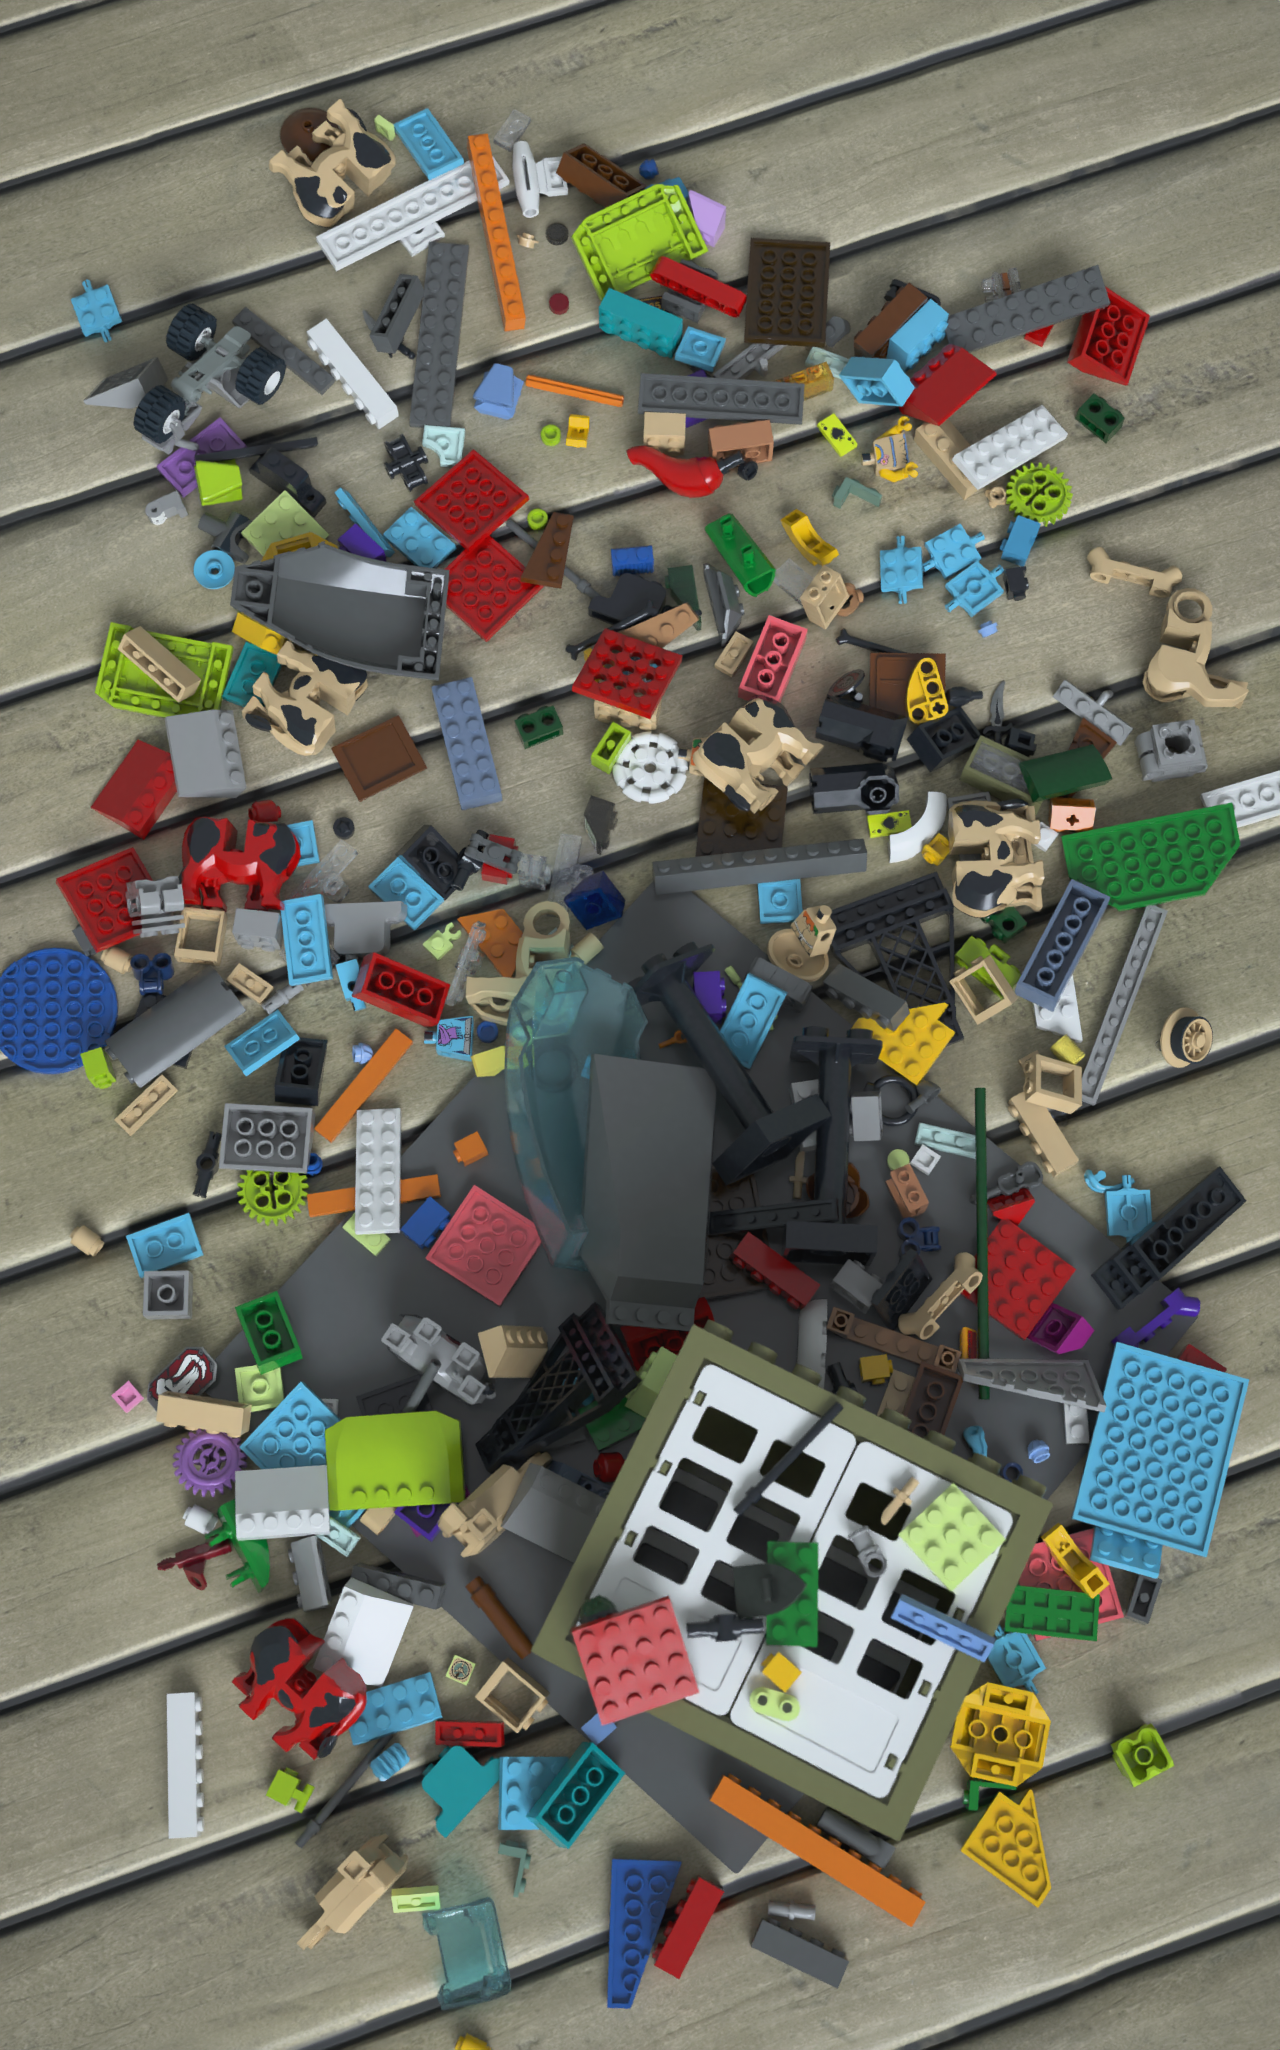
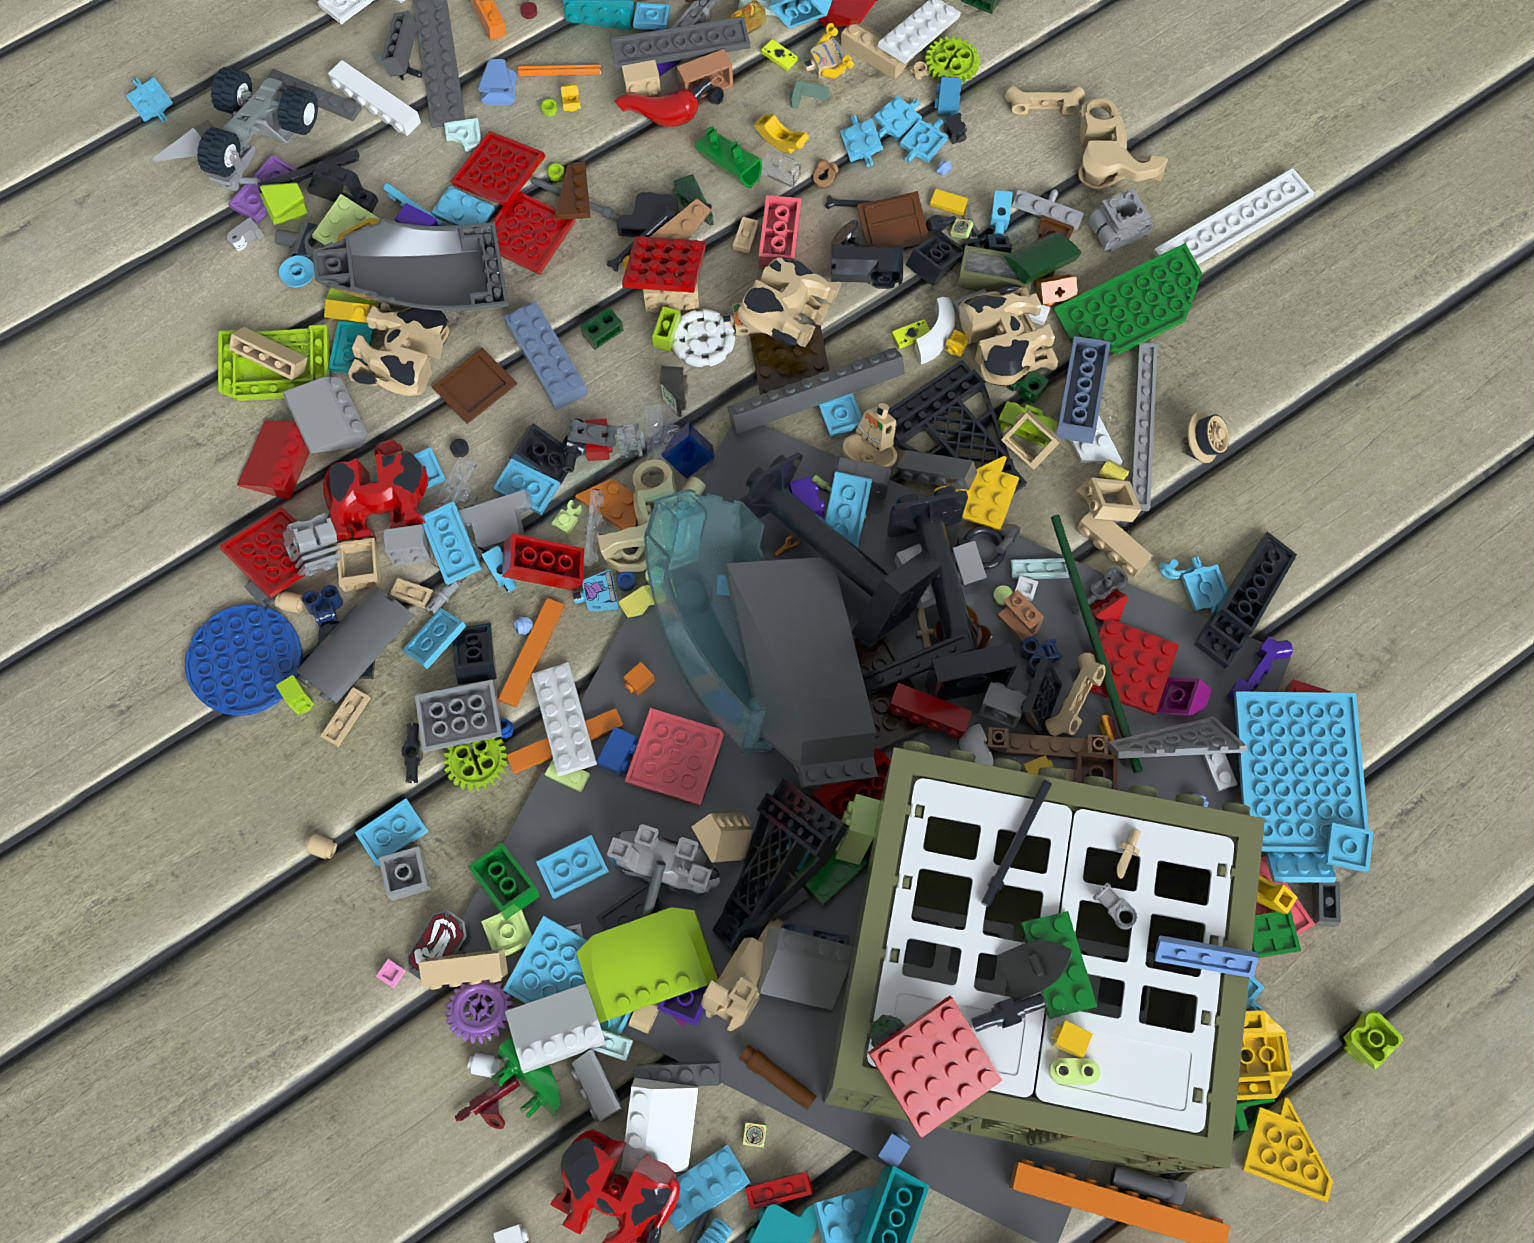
camera: 15 degrees left, 5 degrees down
(345, 1336) = (572, 867): none -> medium azure plate
(406, 462) = (436, 154): black axle -> none
(499, 1709) = (800, 1161): tan window -> none
(608, 1466) = (836, 917): red head -> none
(632, 560) = (642, 181): blue brick -> none
(724, 602) = (725, 196): dark grey wedge -> none
(818, 602) = (805, 169): tan window -> none
(853, 788) = (875, 311): black brick -> none
(920, 698) = (907, 229): yellow beam -> none
(951, 1537) = (1185, 873): yellowish green plate -> none
(981, 672) = (949, 202): none -> yellow tile
(985, 710) = (961, 228): none -> tile
(1036, 698) = (1000, 211): none -> medium azure torso
(1182, 1546) = (1349, 847): none -> medium azure plate

